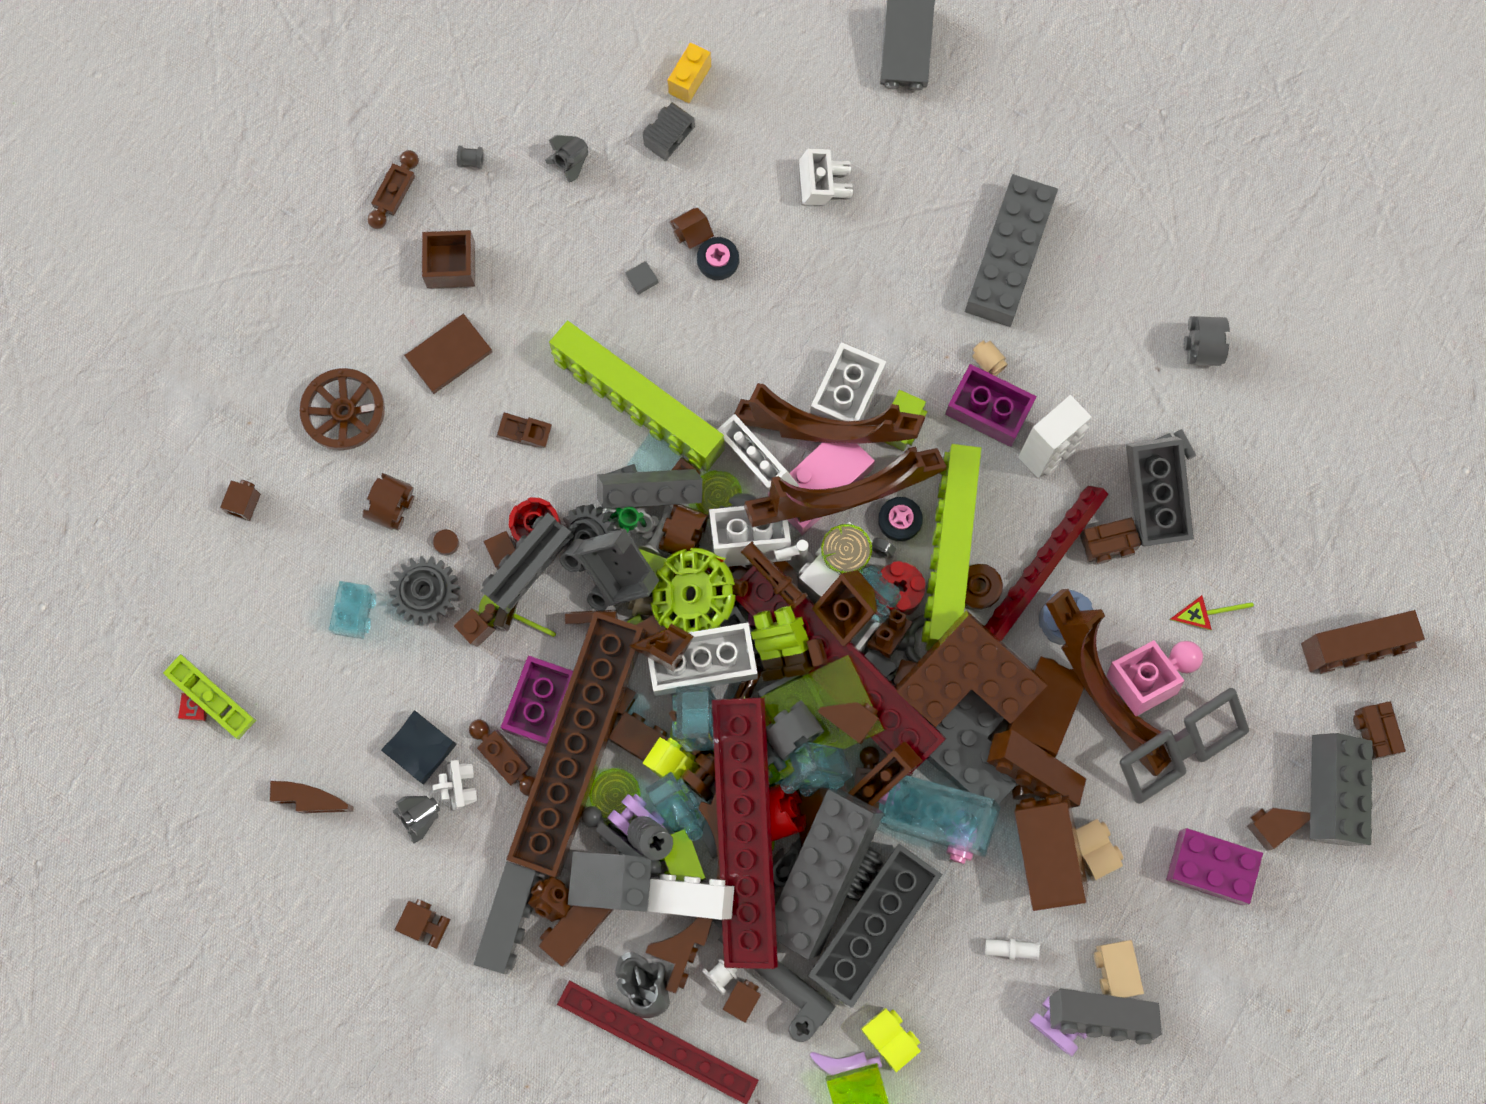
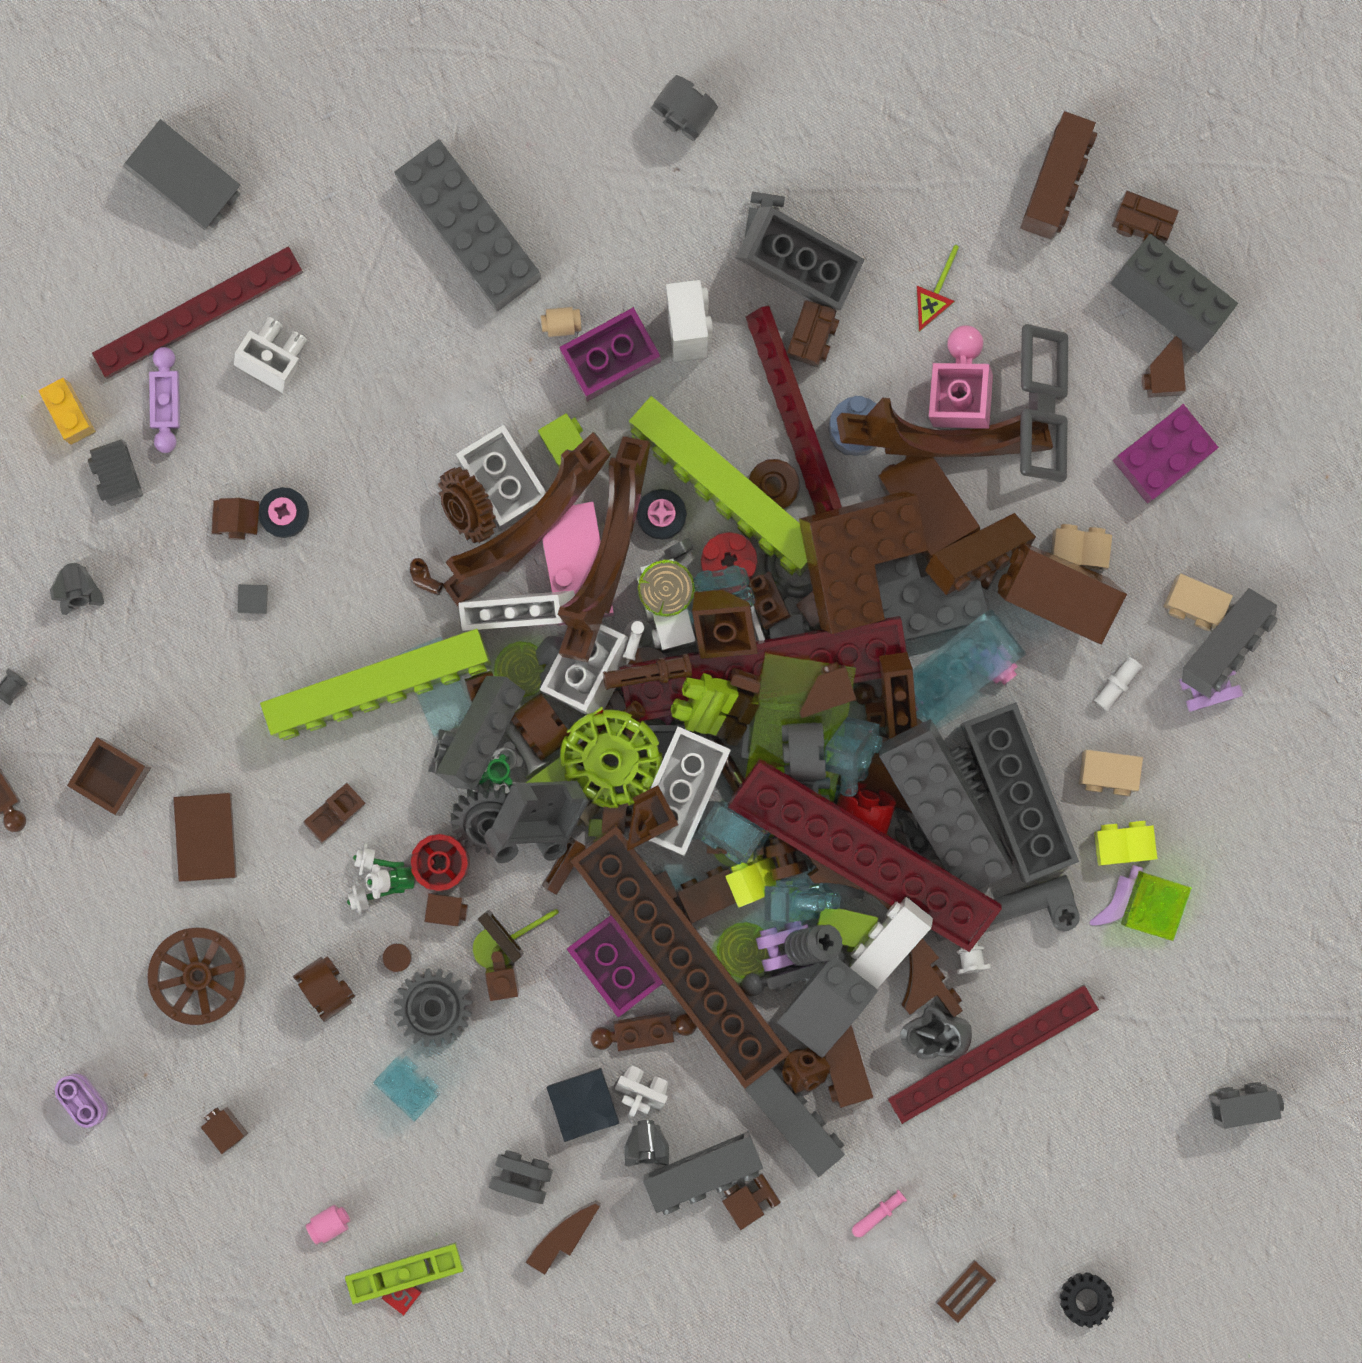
camera: 60 degrees left, 10 degrees up
(201, 388) = (81, 1100): none -> lavender brick
(214, 618) = (328, 1224): none -> bright pink brick
(347, 744) = (536, 1170): none -> dark grey brick
(422, 871) = (702, 1172): none -> dark grey brick
(461, 1029) = (872, 1219): none -> bright pink piece
(492, 487) = (378, 880): none -> plant
(527, 562) = (478, 894): dark grey brick -> none
(736, 382) = (422, 577): none -> reddish brown arm
(742, 131) = (164, 400): none -> lavender plate
(742, 1000) = (1006, 954): reddish brown brick -> none
(810, 373) = (466, 504): none -> reddish brown gear
(819, 115) = (197, 312): none -> dark red plate
(863, 769) = (875, 709): none -> reddish brown piece
(939, 988) = (1110, 771): none -> tan brick

